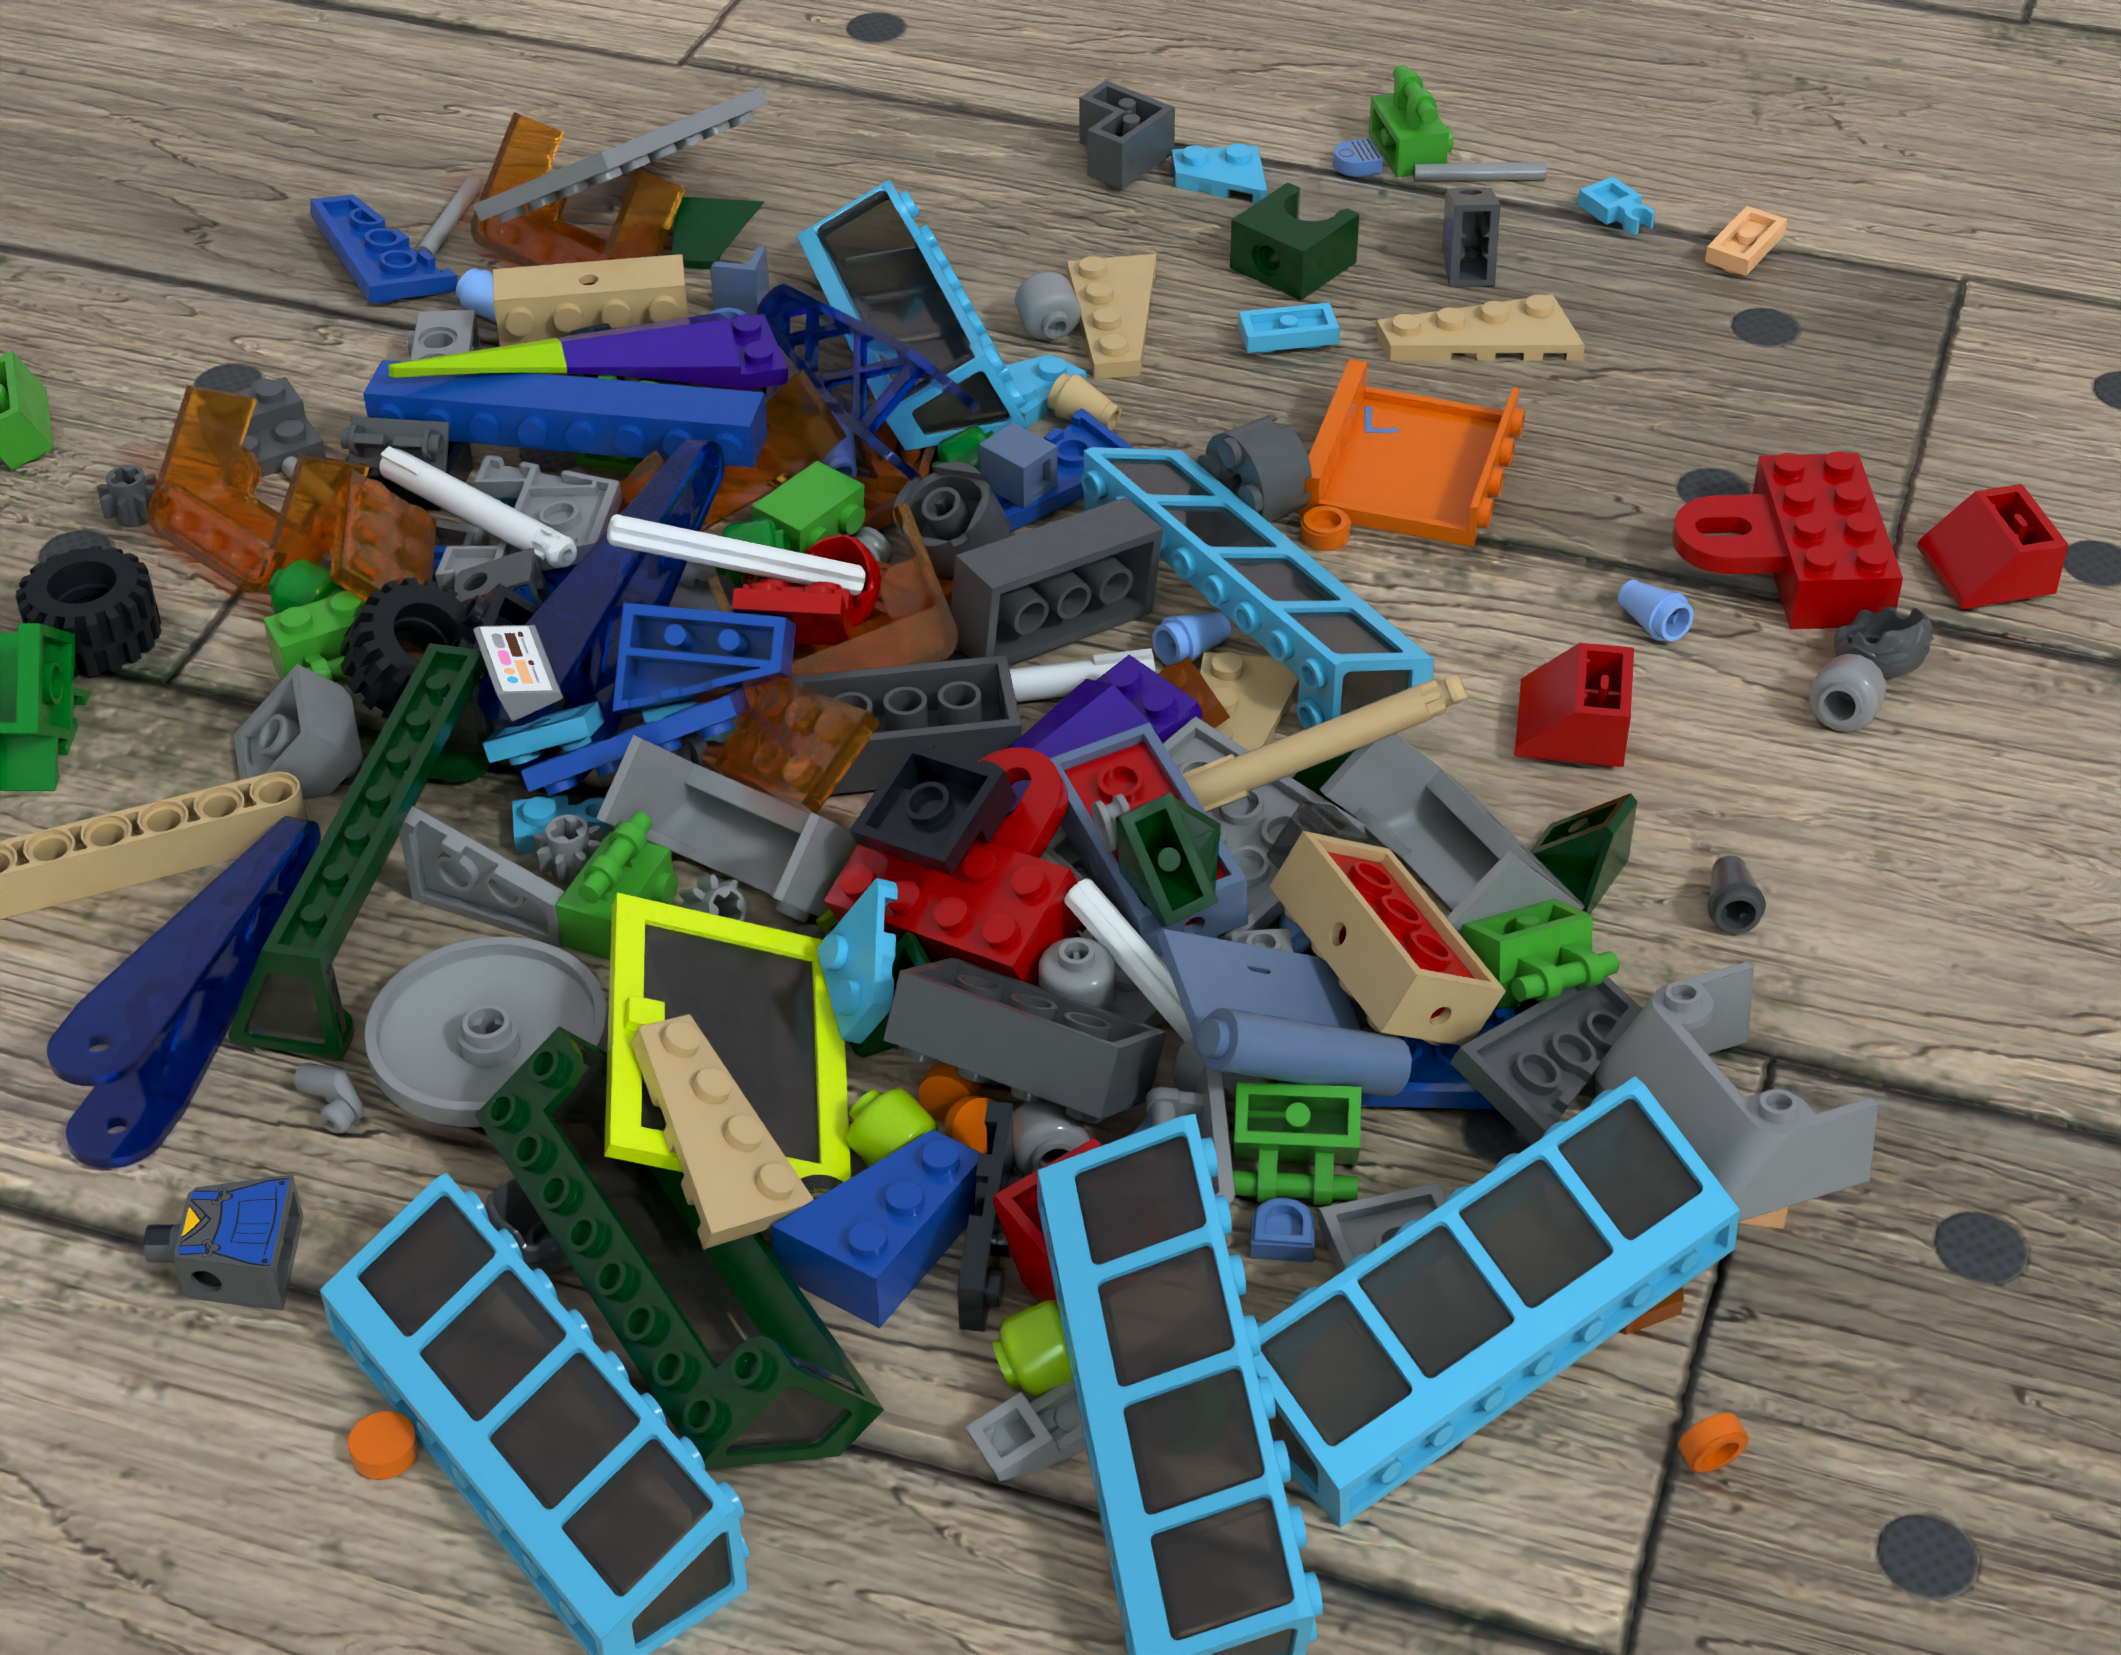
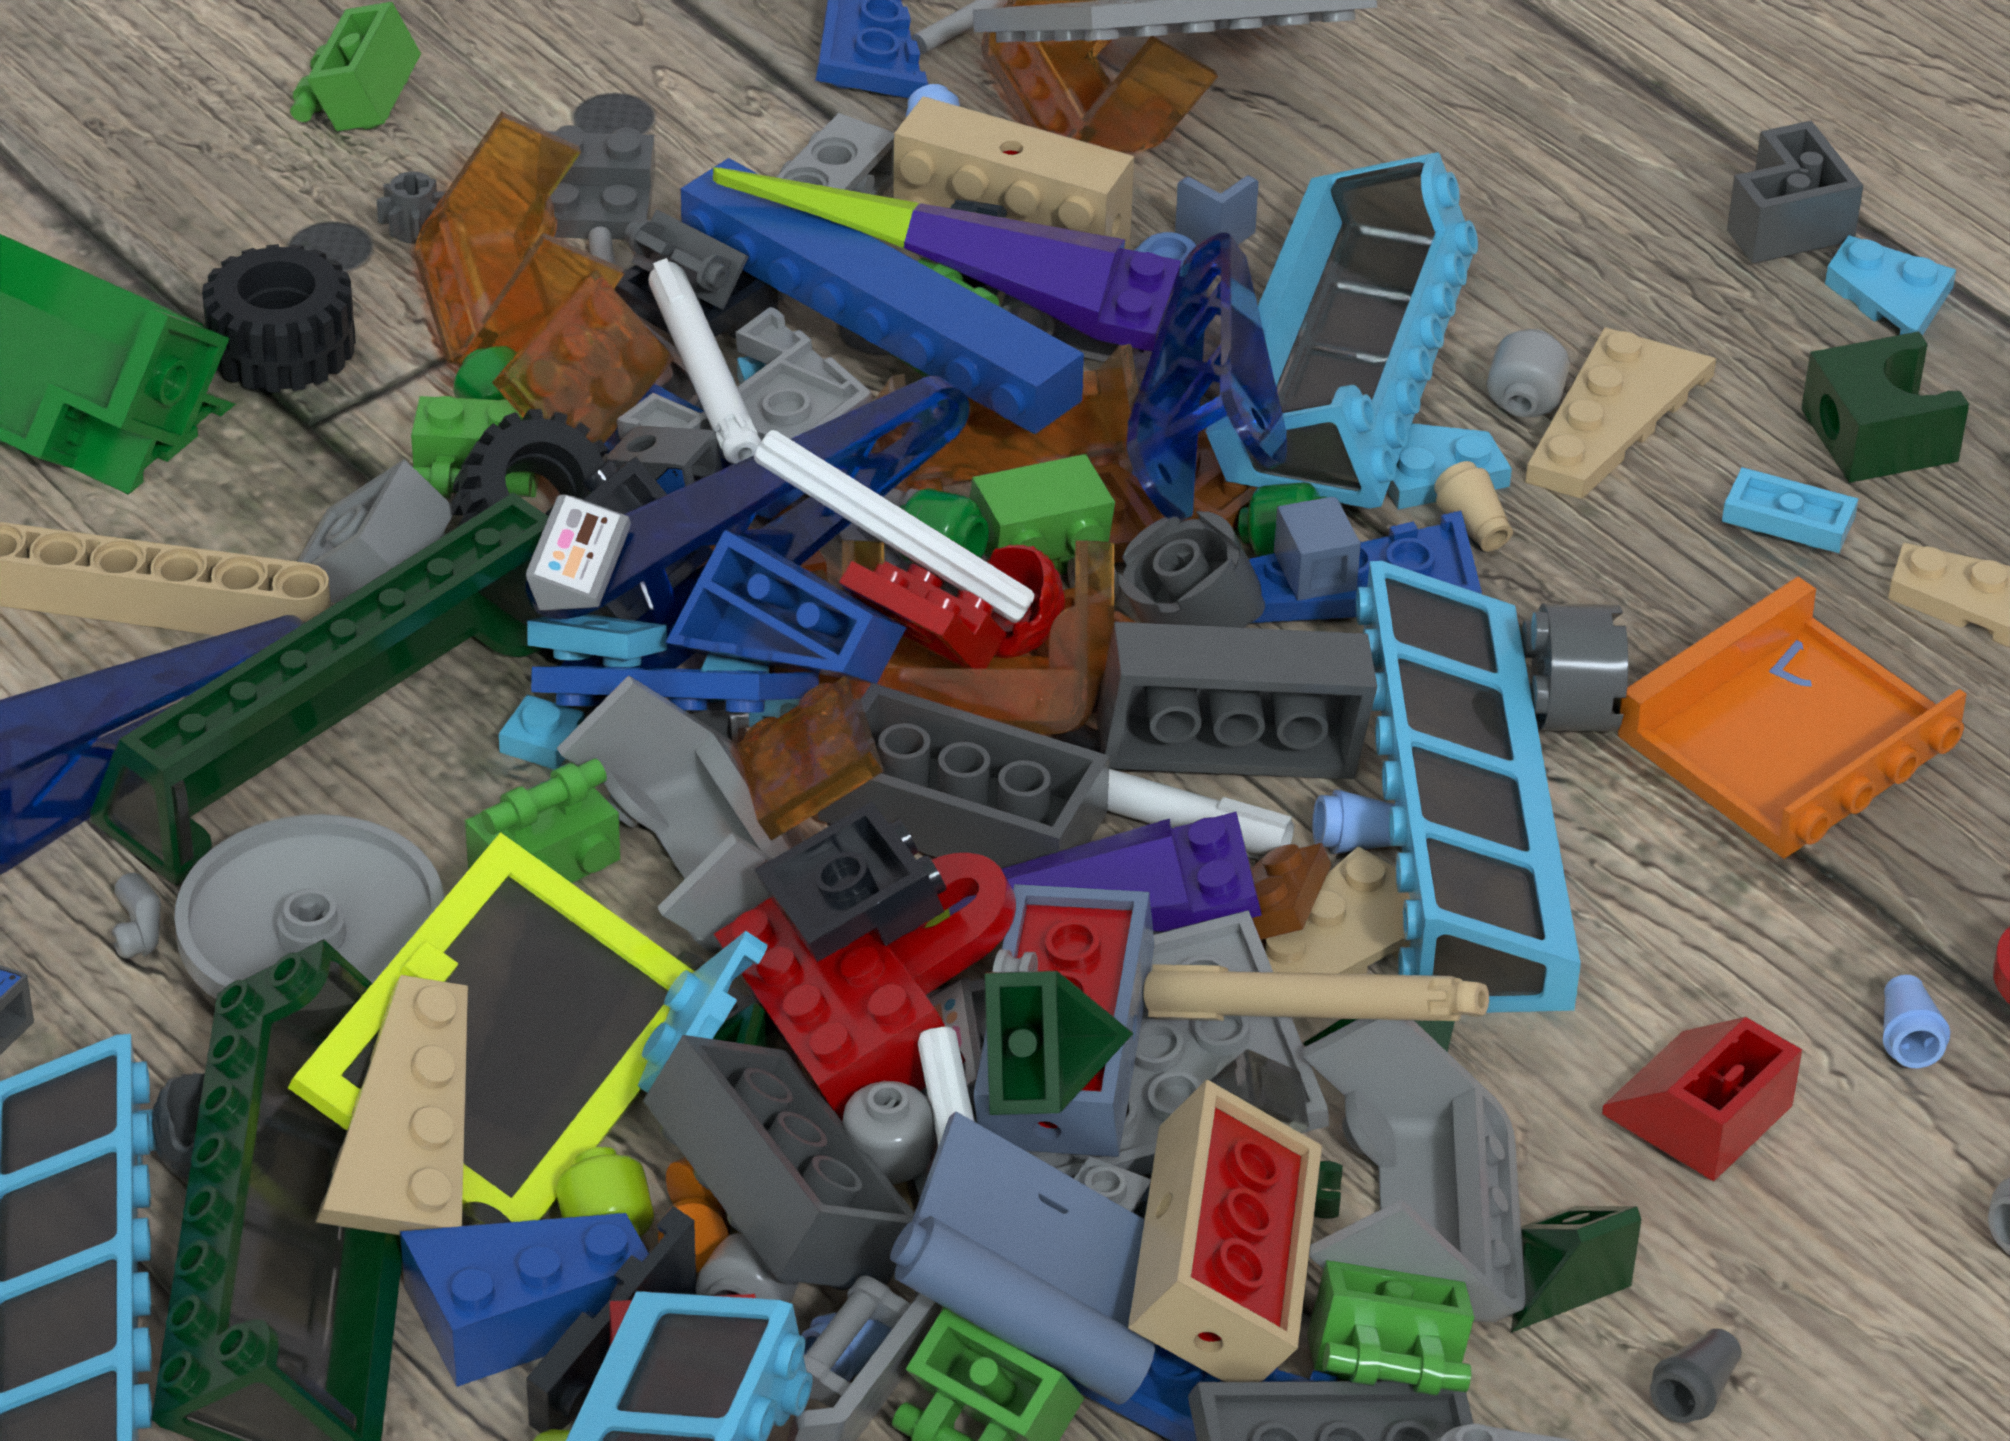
camera: 30 degrees right, 0 degrees up
(475, 882) = (413, 757): light grey wing -> none
(566, 846) = (530, 760): light grey gear -> none
(708, 227) = (1227, 133): dark green slope -> none
(716, 898) = (637, 899): light grey gear -> none
(1325, 528) = (1626, 765): orange tile -> none

